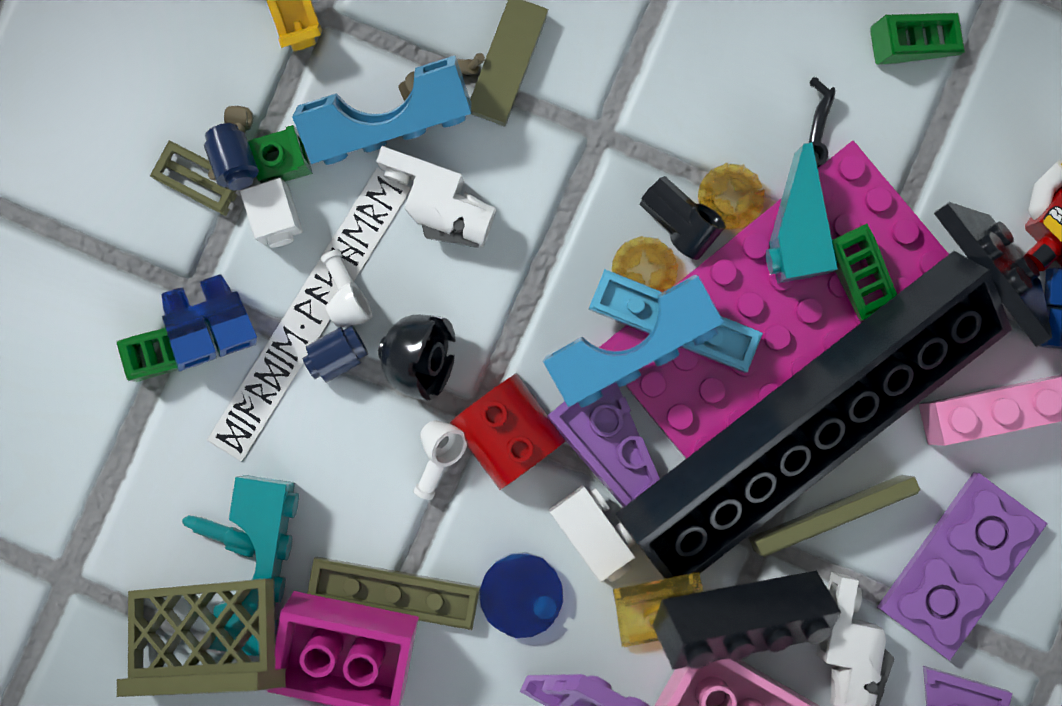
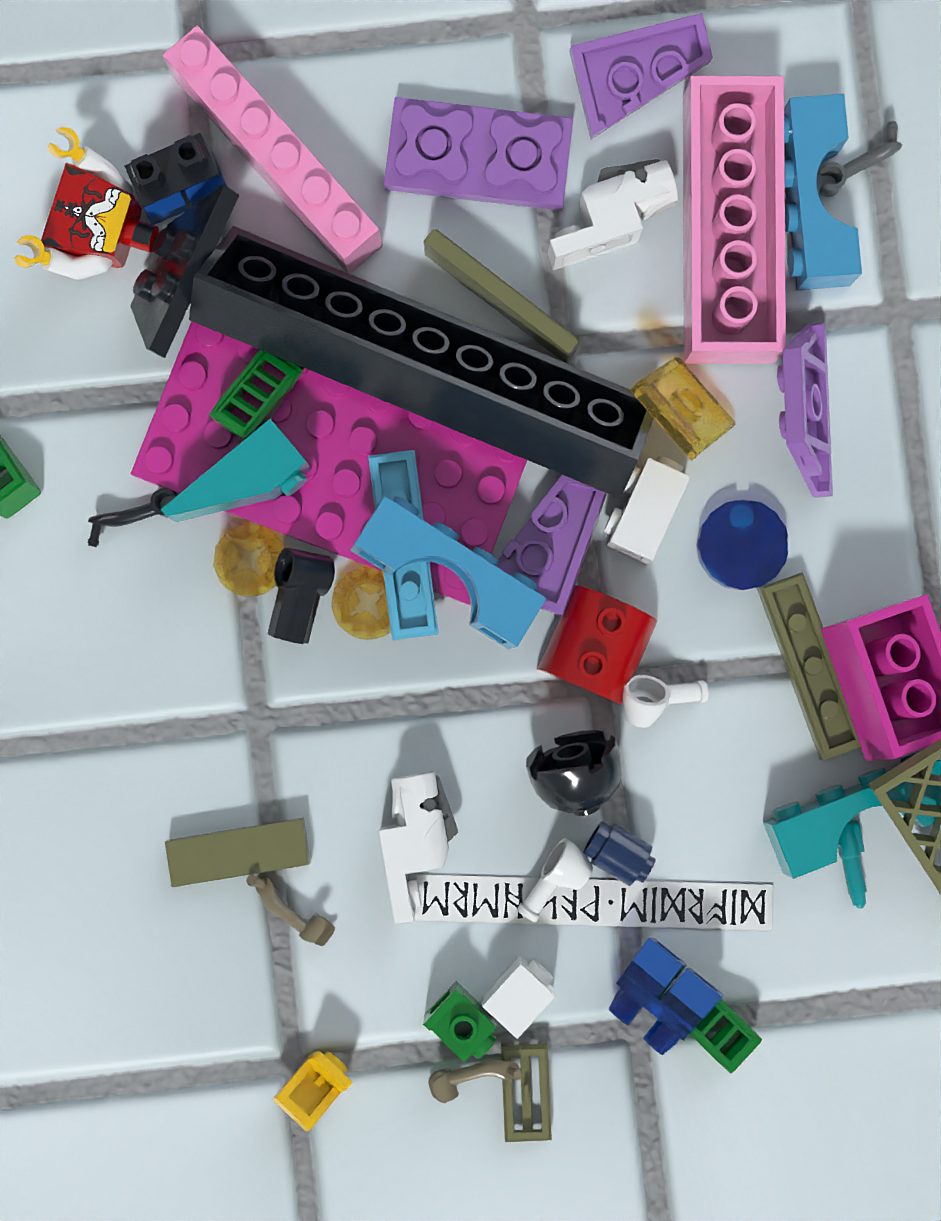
camera: 125 degrees left, 0 degrees up
(230, 156) = (490, 1066): dark blue brick -> none
(334, 128) = (402, 980): dark azure arch -> none
(745, 619) = (648, 323): black brick -> none

